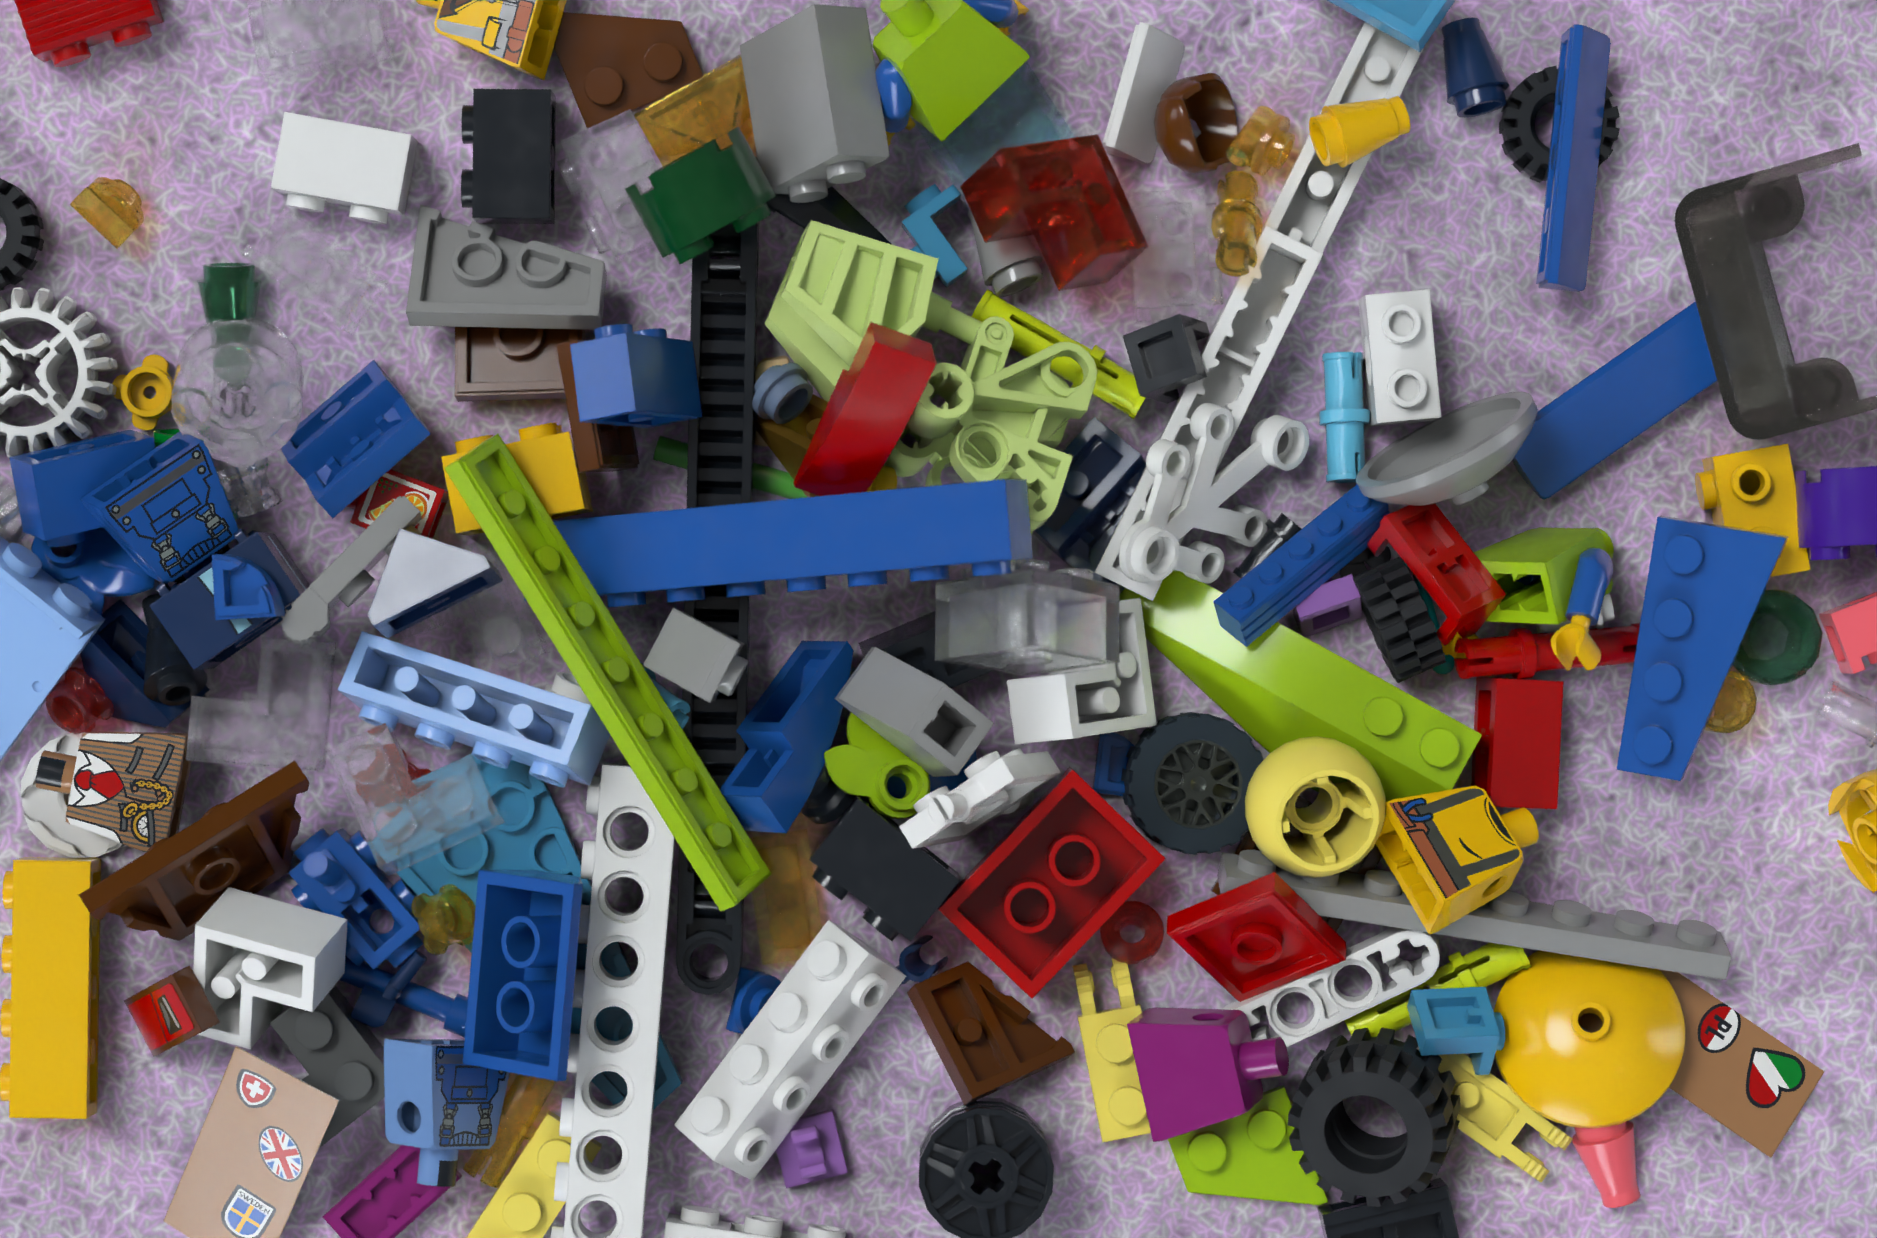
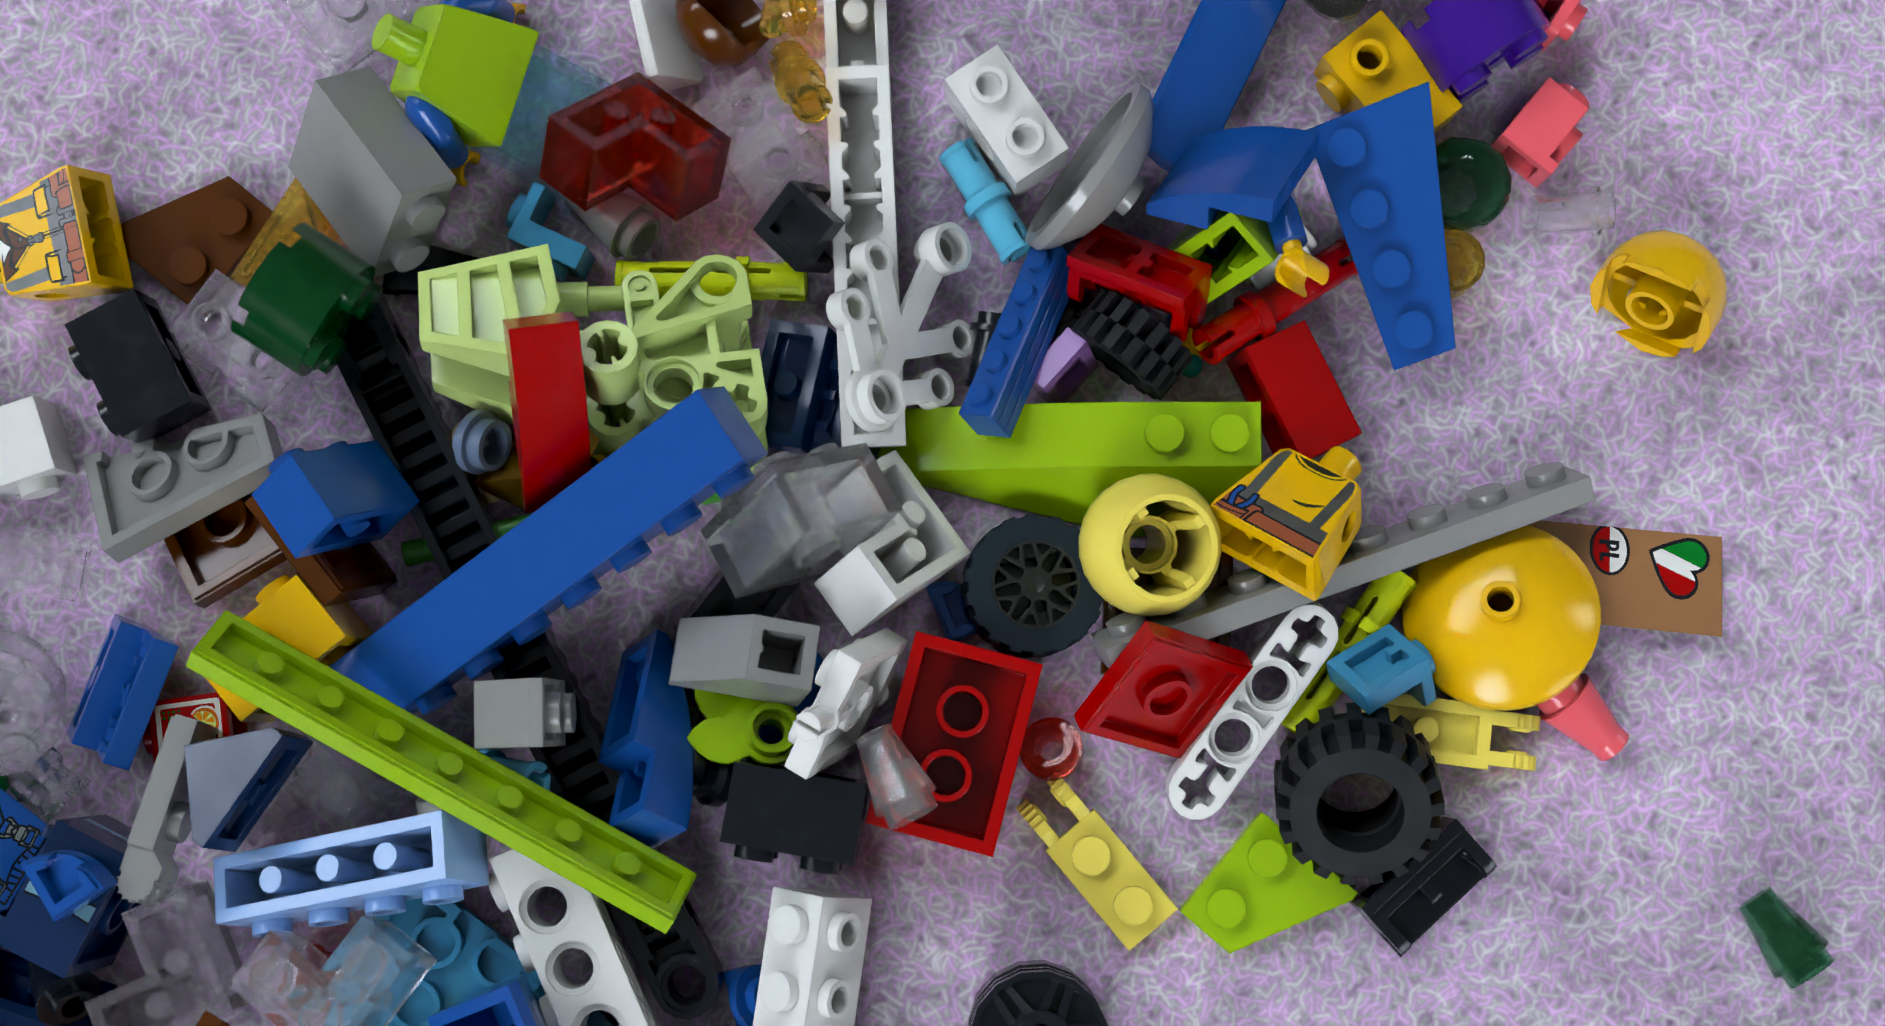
camera: 25 degrees left, 5 degrees down
(788, 899) = (726, 887): clear yellow plate -> none
(912, 964) = (873, 885): dark blue hand -> none
(982, 1032) = (968, 912): reddish brown wing -> none
(986, 887) = (894, 778): none -> clear cone
(1200, 1066) = (1178, 835): magenta torso -> none
(1570, 526) = (1236, 172): none -> blue slope

